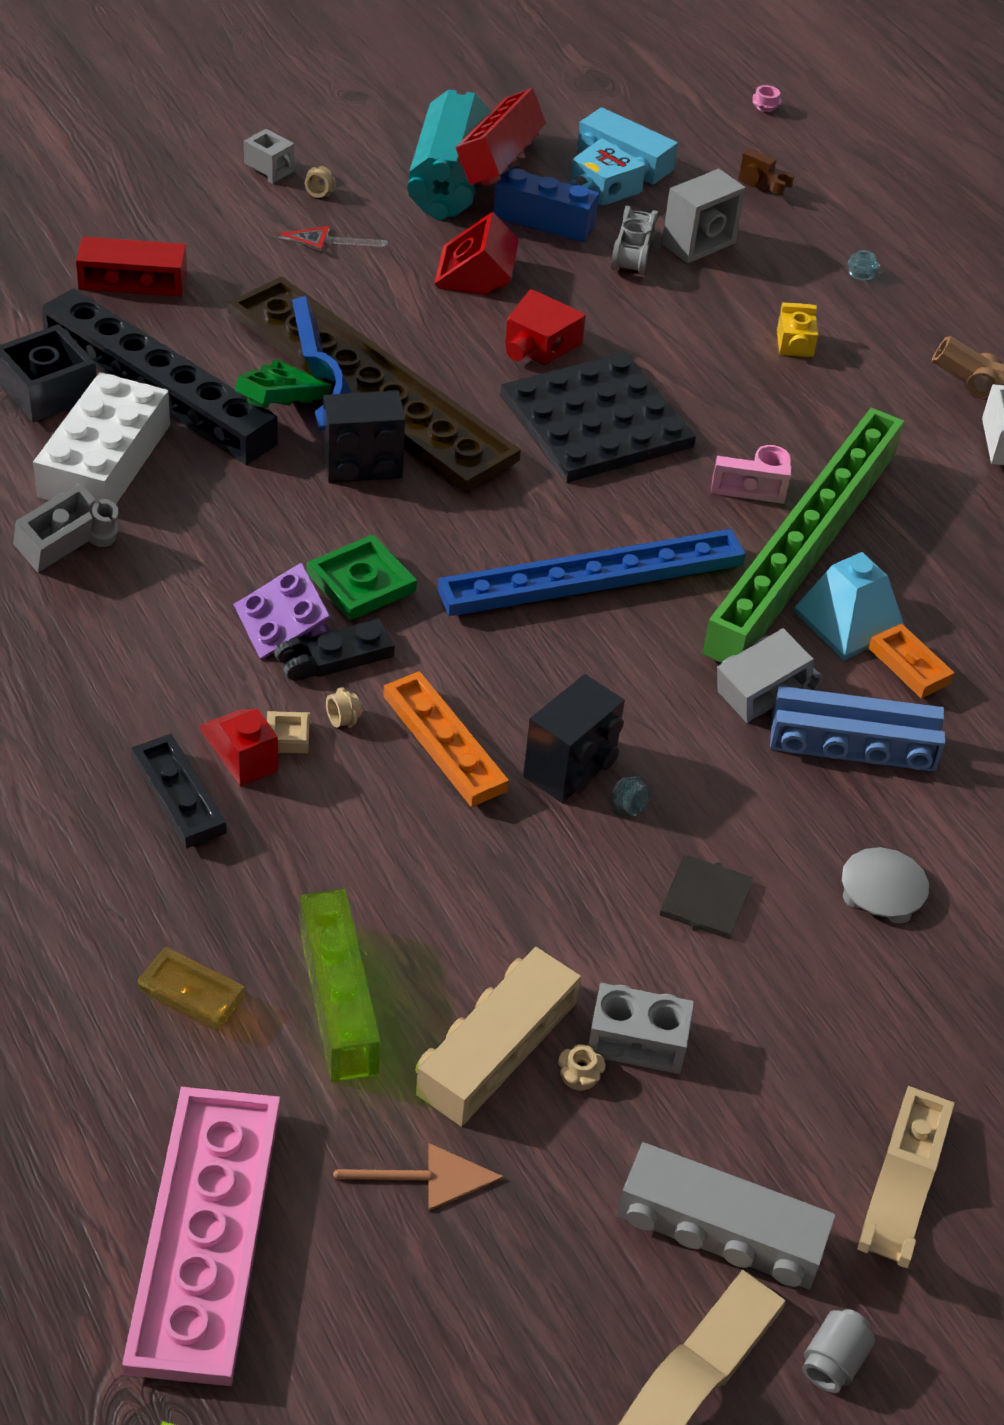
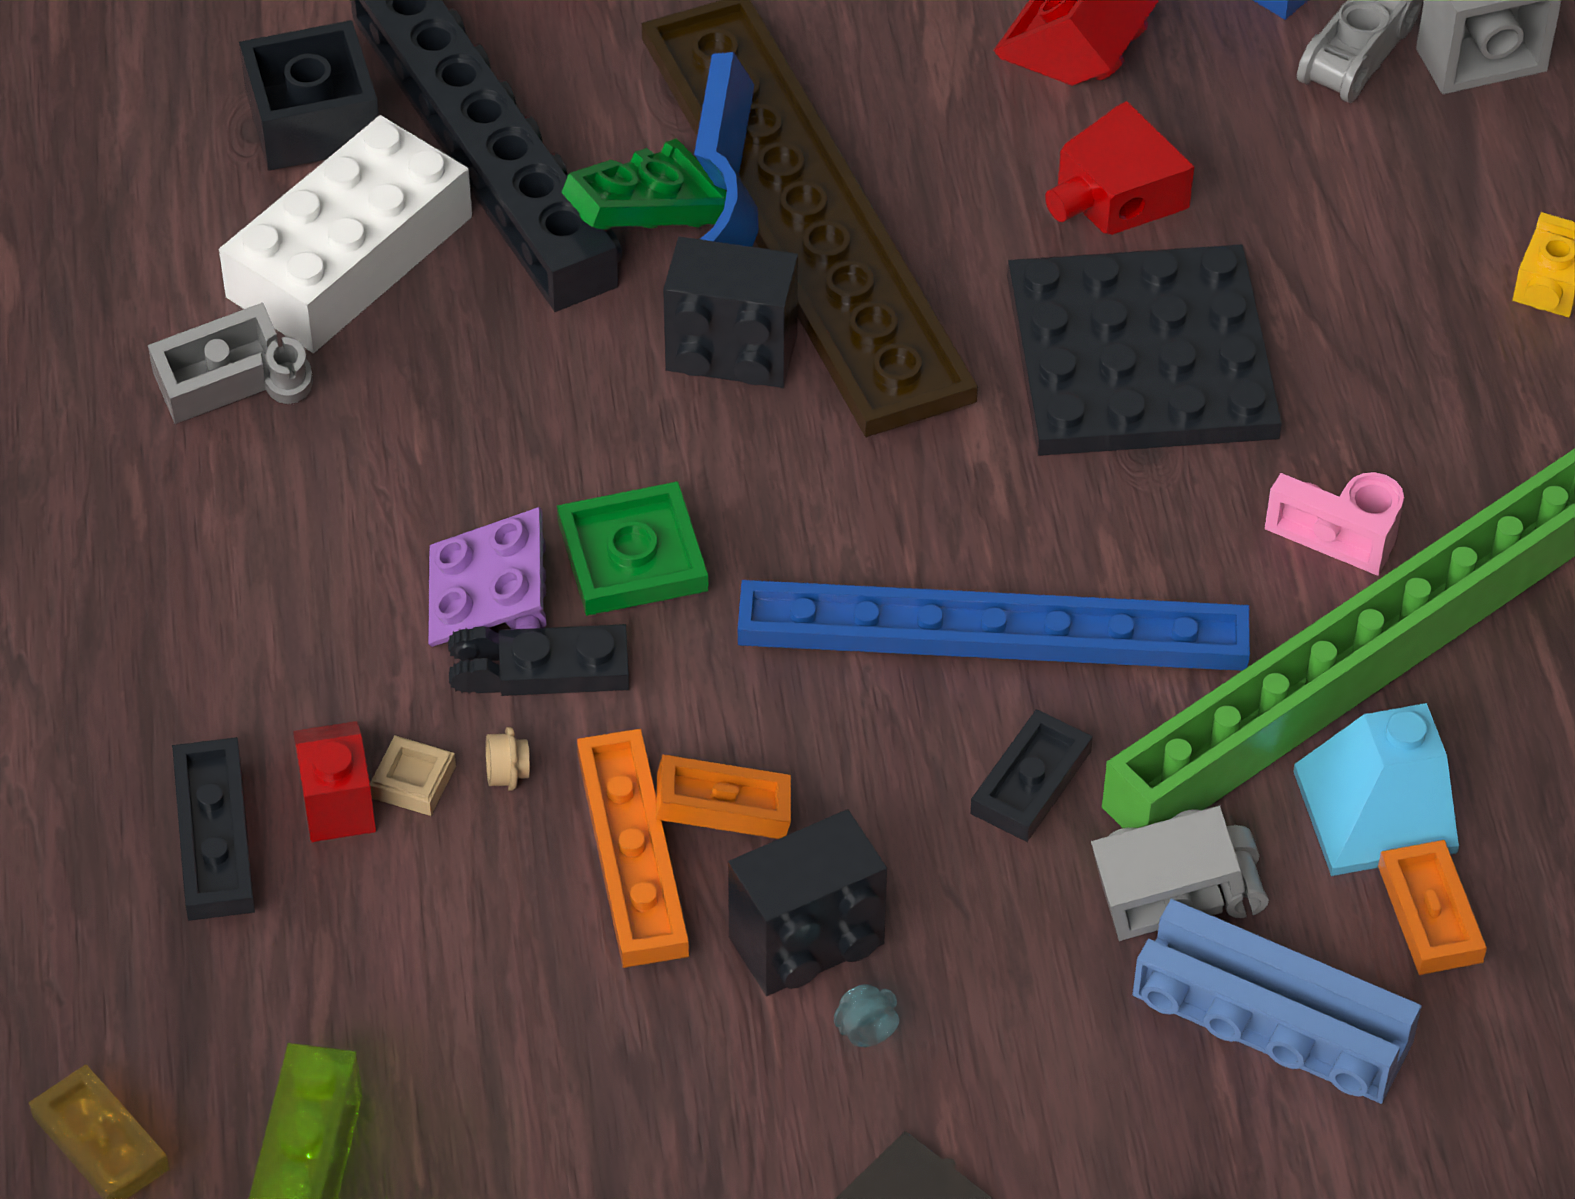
camera: 25 degrees right, 5 degrees up
(487, 696) = (723, 797): none -> orange plate
(656, 645) = (1031, 775): none -> black plate

